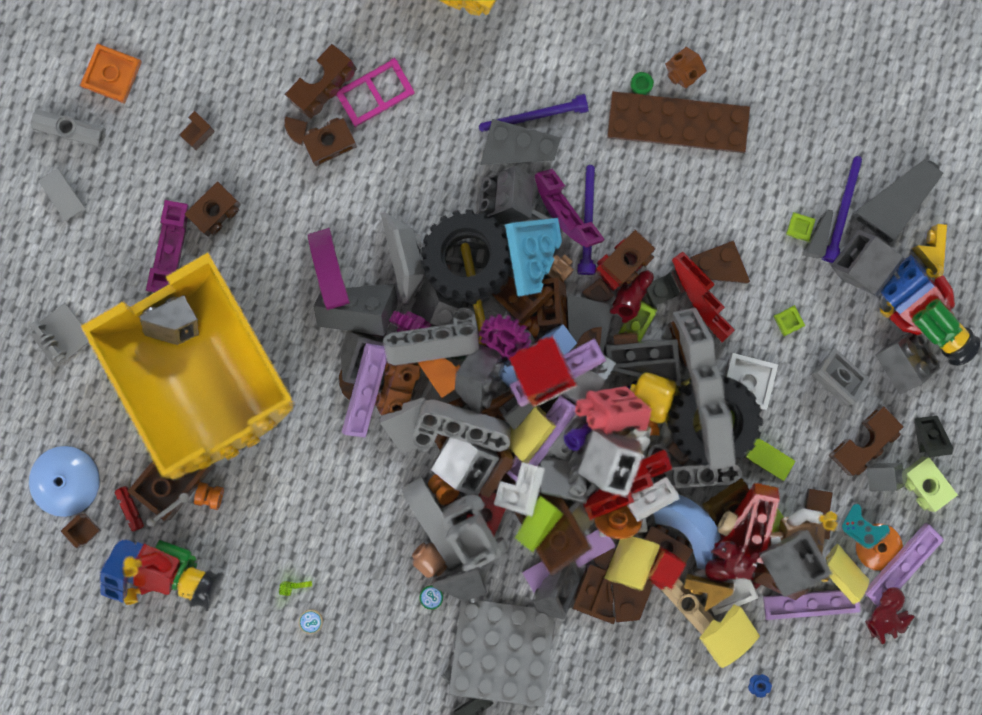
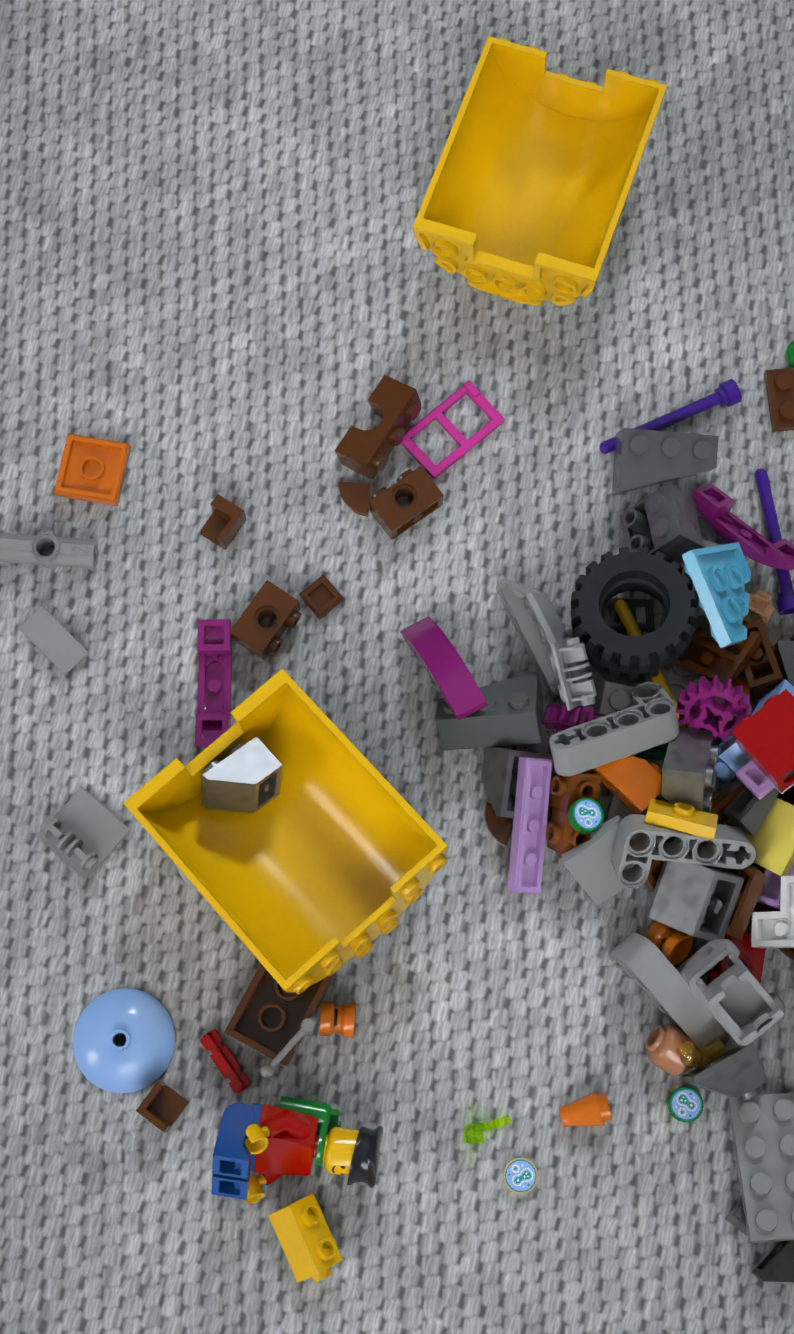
camera: 10 degrees left, 10 degrees down
(159, 634) = (306, 1239): none -> yellow brick
(256, 199) = (321, 597): none -> reddish brown tile
(365, 589) = (587, 1111): none -> orange cone
(401, 393) = (585, 815): none -> tile
(412, 292) = (568, 659): none -> light grey hinge
(444, 570) = (702, 1056): none -> clear yellow arm
(463, 409) = (681, 818): none -> yellow plate

